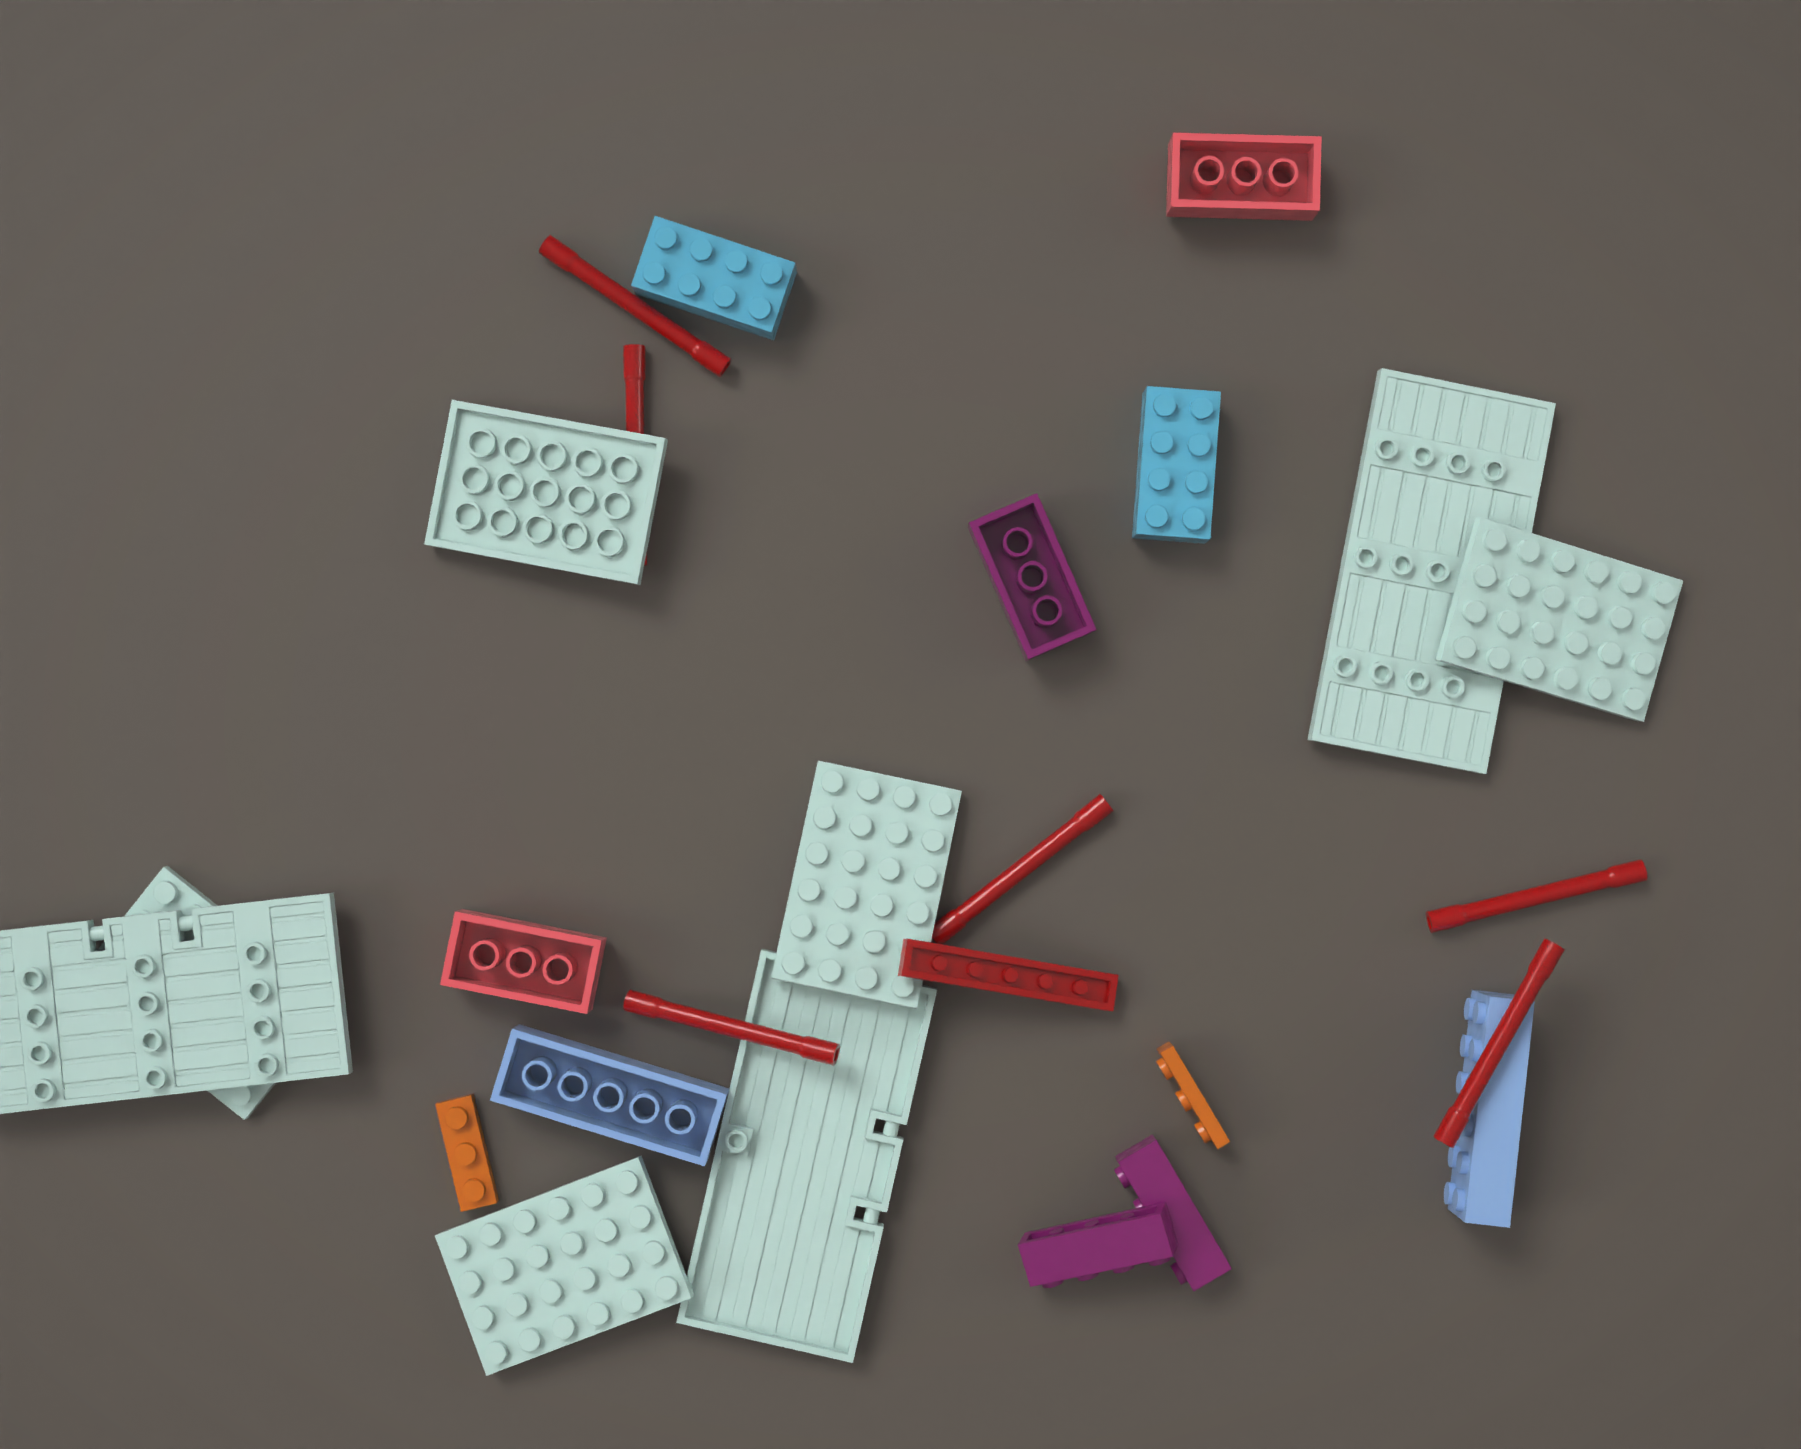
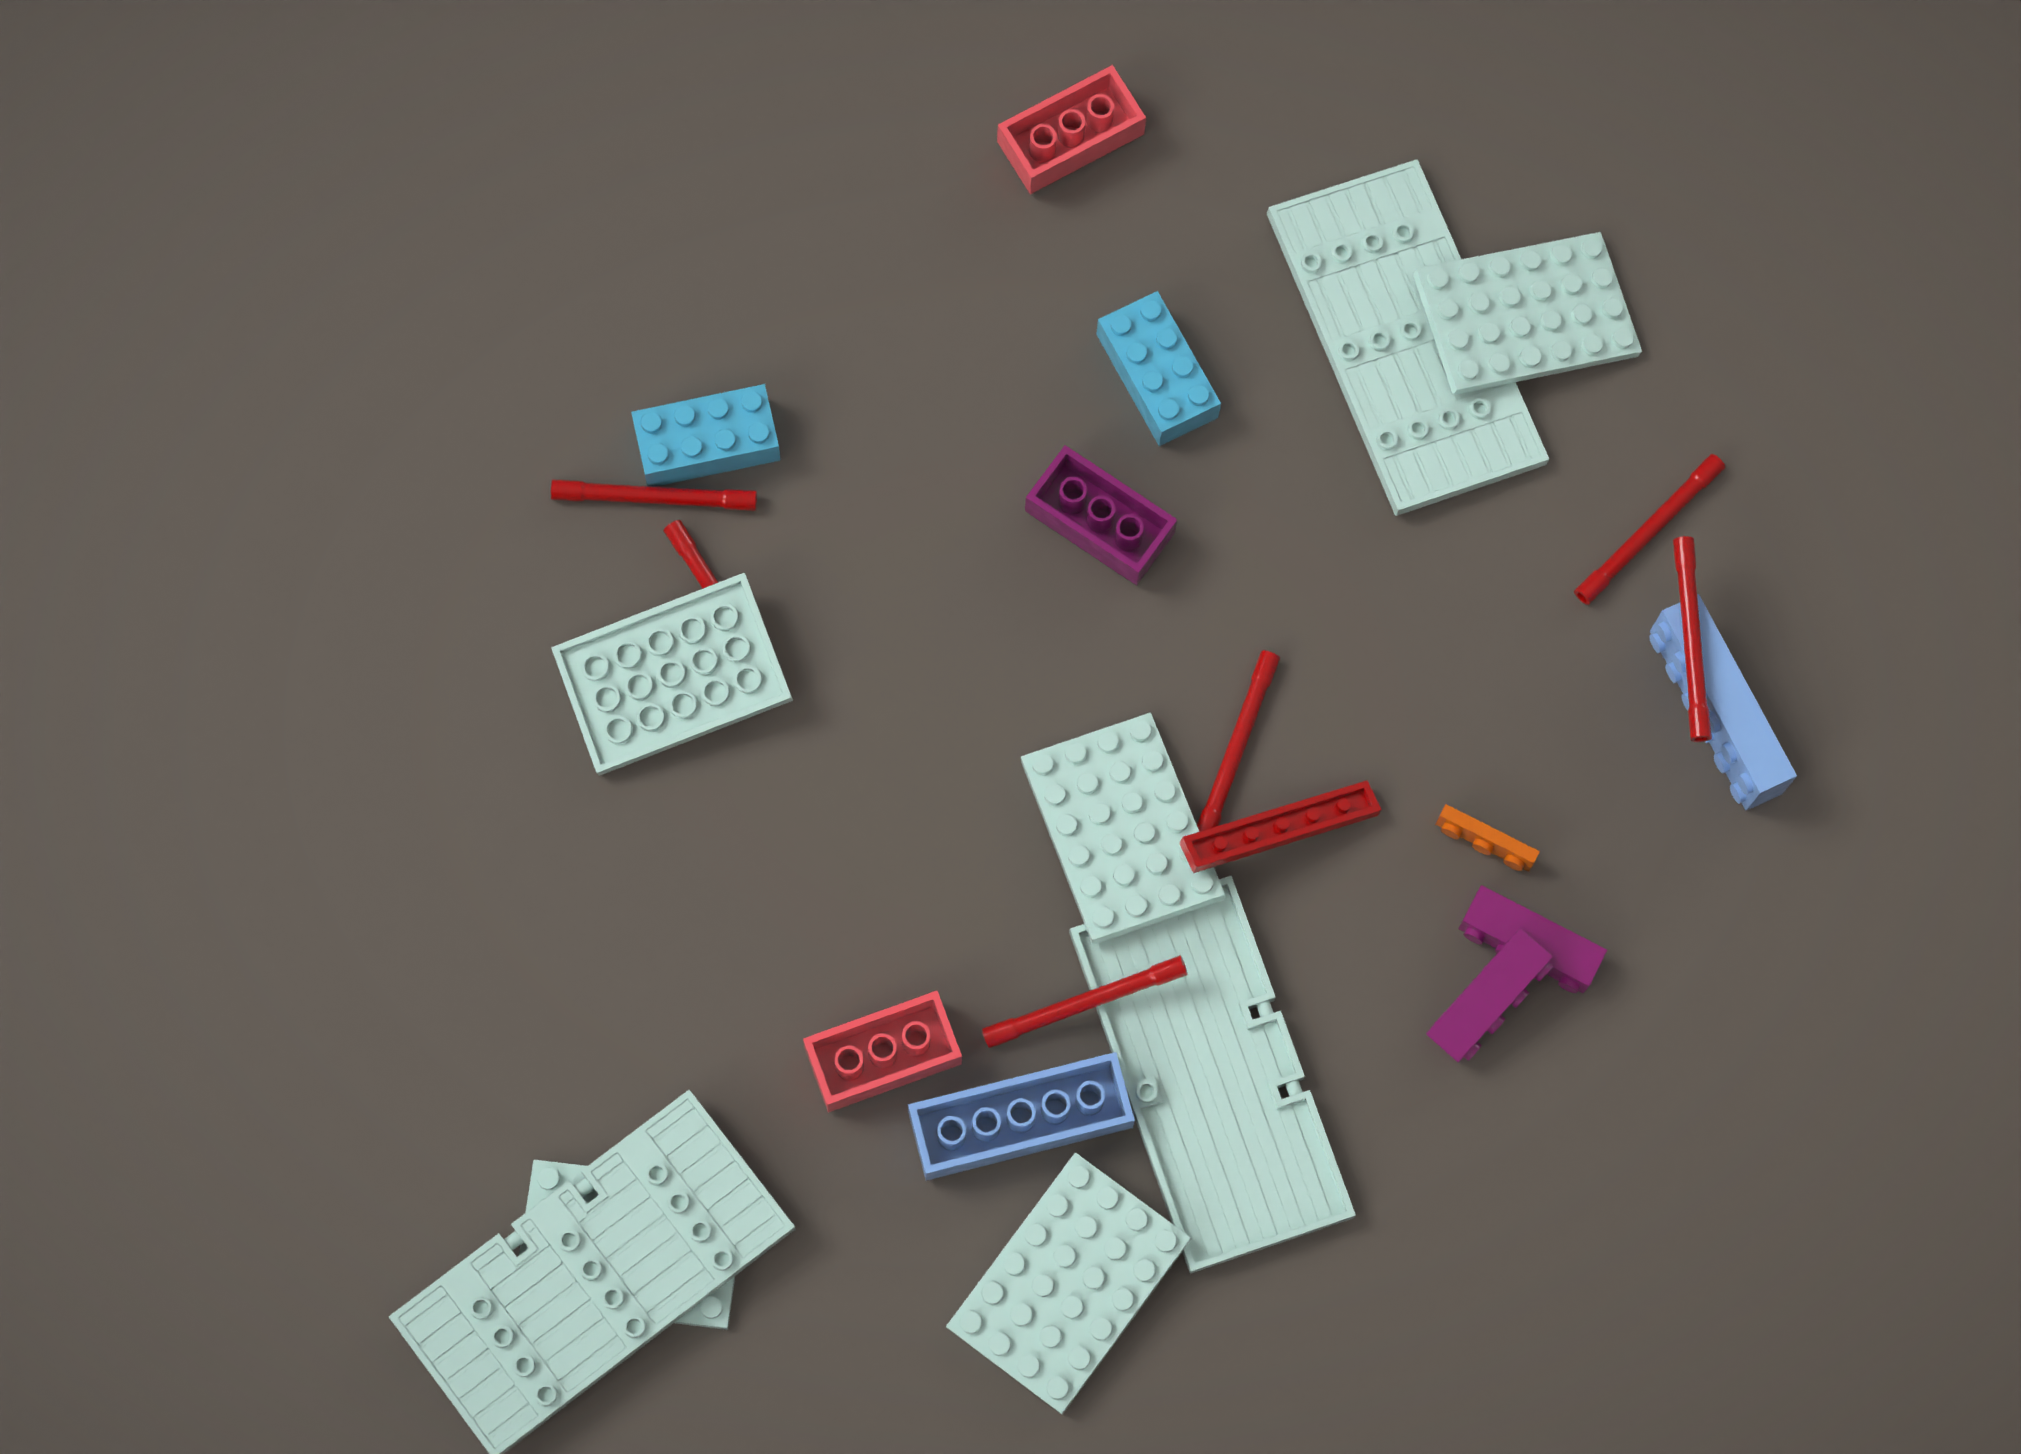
camera: 35 degrees left, 15 degrees down
(467, 1152) = (929, 1243): orange plate -> none

